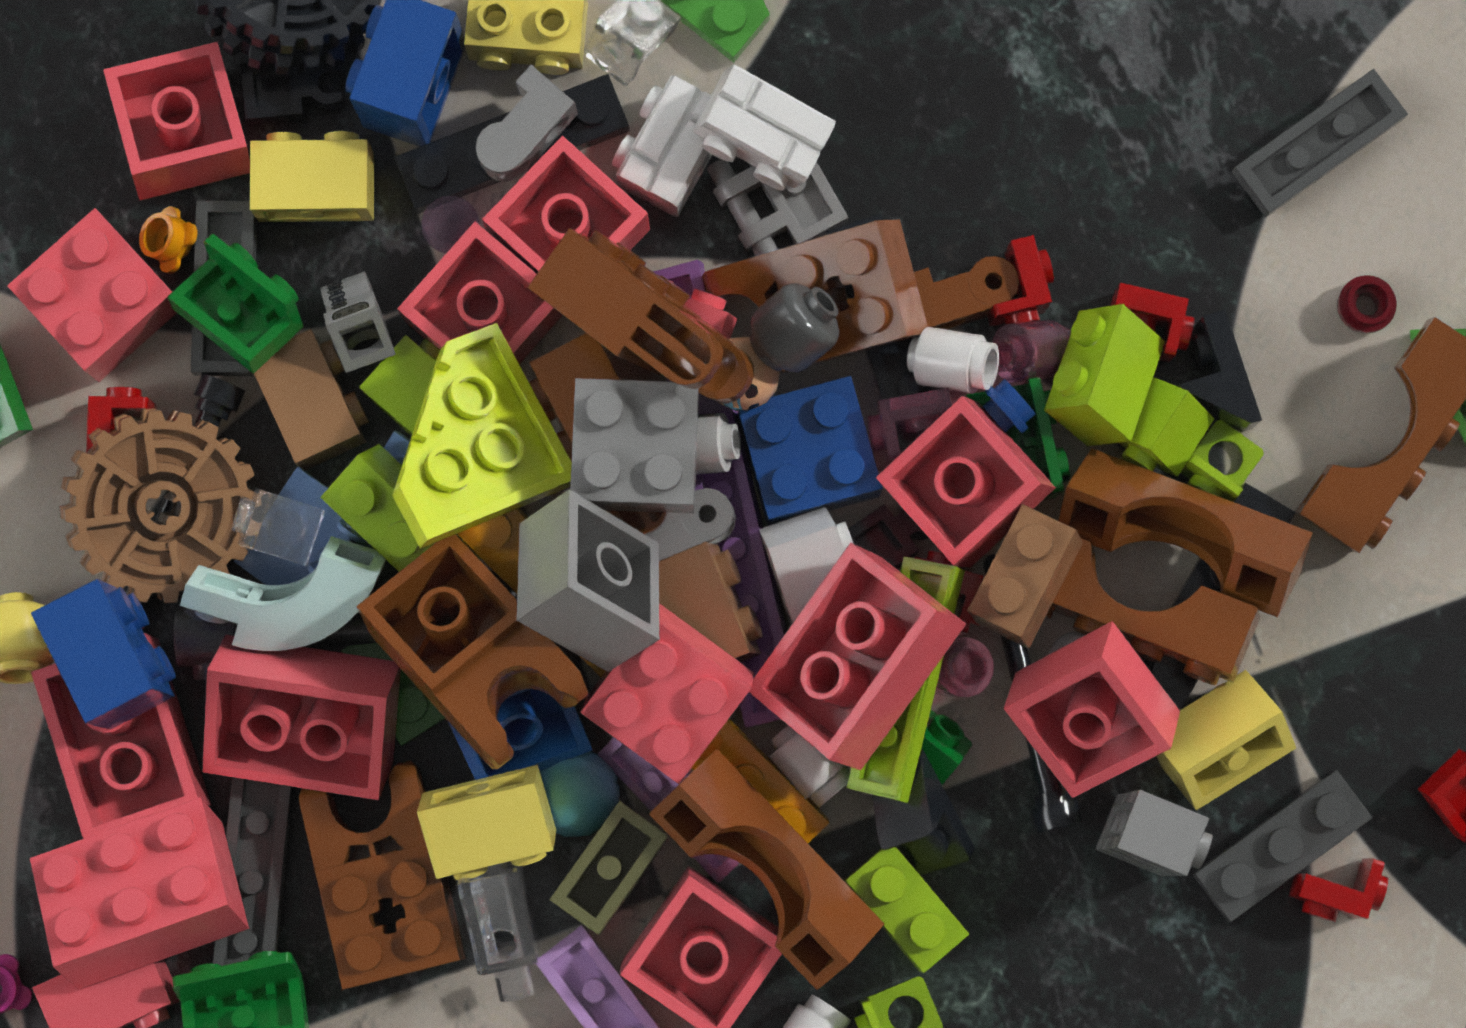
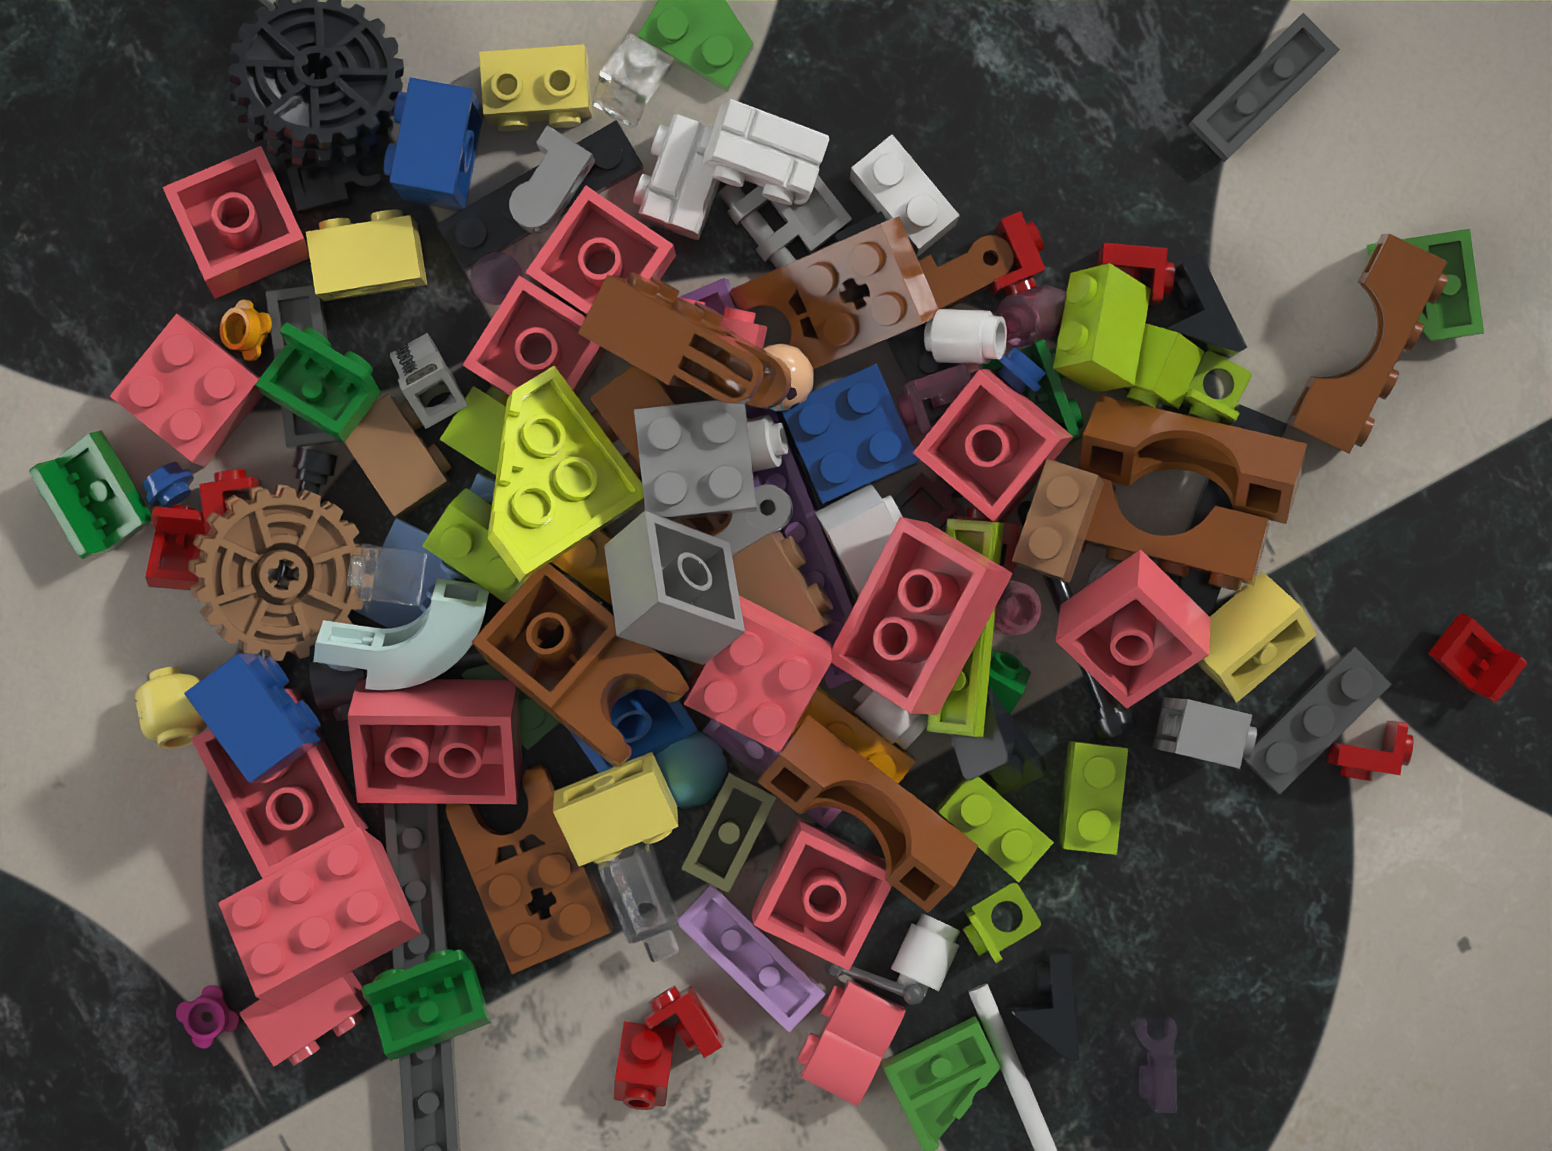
camera: 10 degrees left, 5 degrees up
(48, 461) = (174, 547): none -> red bracket
(54, 394) = (168, 485): none -> blue plate
(794, 328) = (821, 331): dark grey head -> none
(904, 189) = (900, 188): none -> white brick
(1020, 891) = (1092, 797): none -> lime brick
(1381, 295) = (1336, 216): dark red plate -> none

